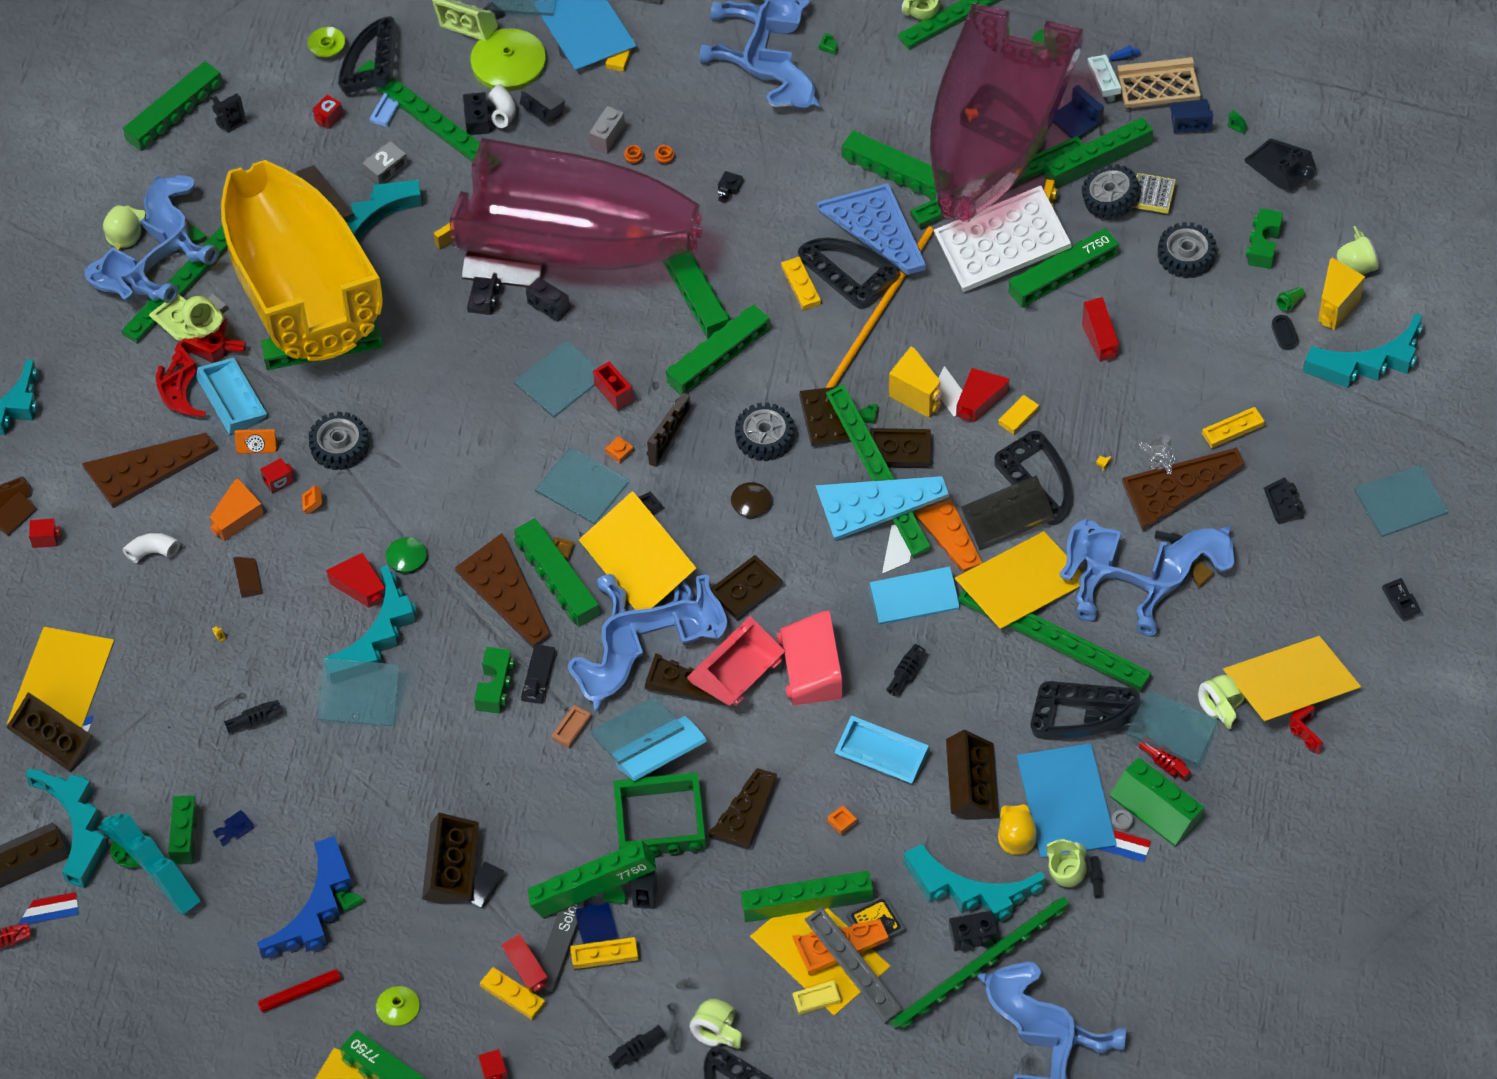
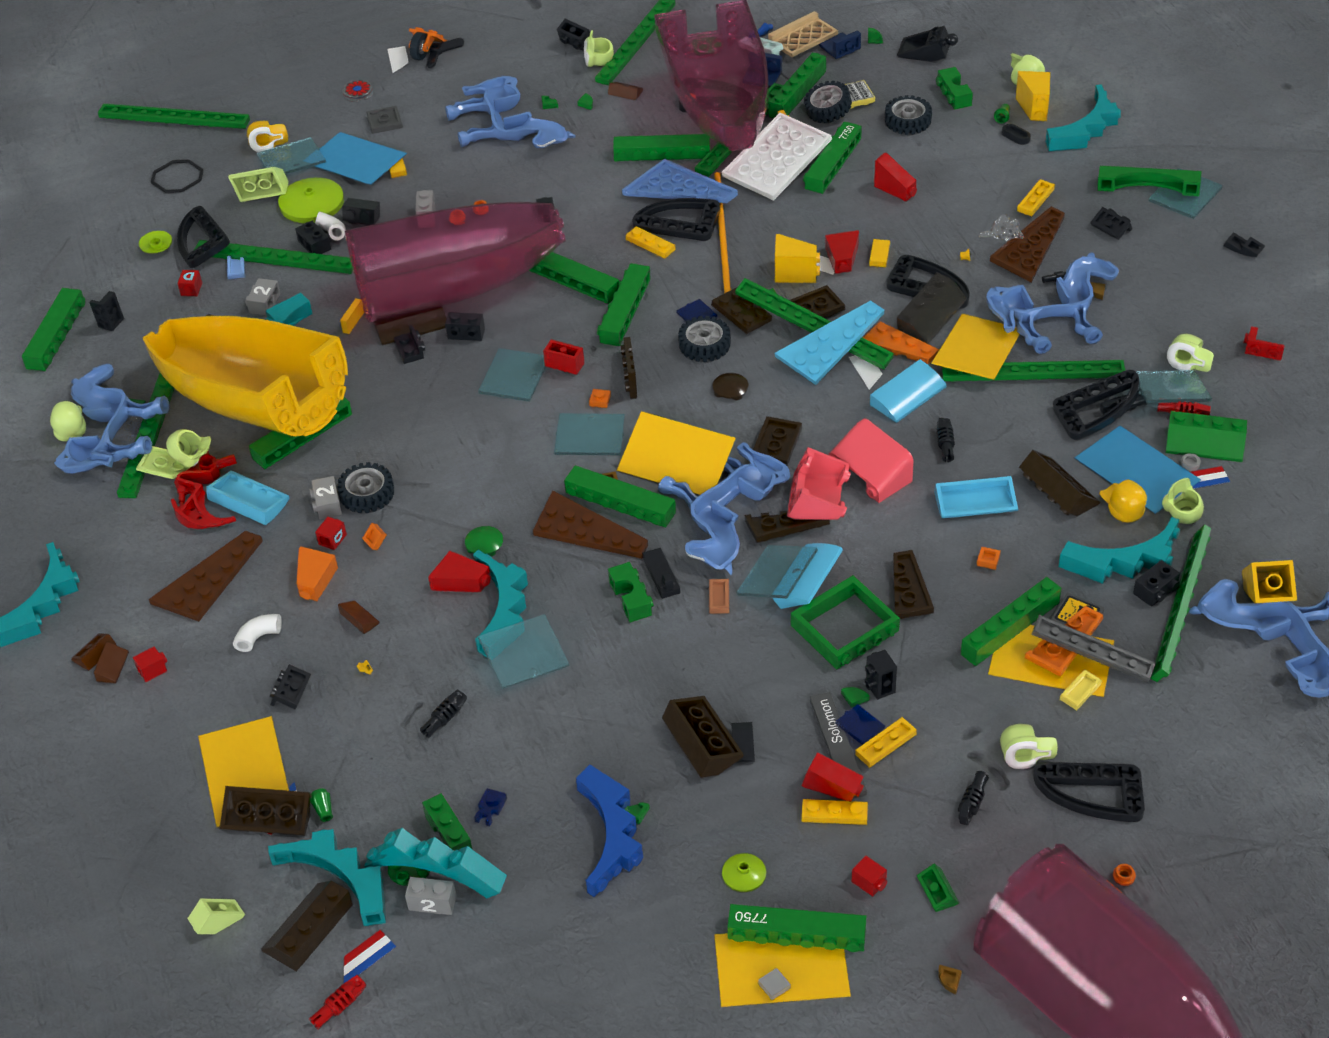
camera: 30 degrees left, 10 degrees down
(99, 749) = (321, 802): none -> green cone
(129, 885) = (430, 895): none -> light grey brick
(144, 620) = (290, 687): none -> black bracket
(256, 441) = (293, 518): orange slope -> none
(295, 433) = (326, 497): none -> light grey brick
(299, 990) = (648, 904): red axle -> none
(592, 879) = (840, 685): green brick -> none
(784, 394) = (695, 309): none -> clear blue piece
(866, 62) = (586, 101): none -> green tile
(918, 66) = (624, 90): none -> reddish brown slope
(1067, 990) = (1270, 581): none -> yellow slope
(1096, 877) = (1210, 507): black bar -> none
(1292, 678) = (1224, 318): yellow piece -> none
(1332, 443) = (1116, 177): none -> green arch

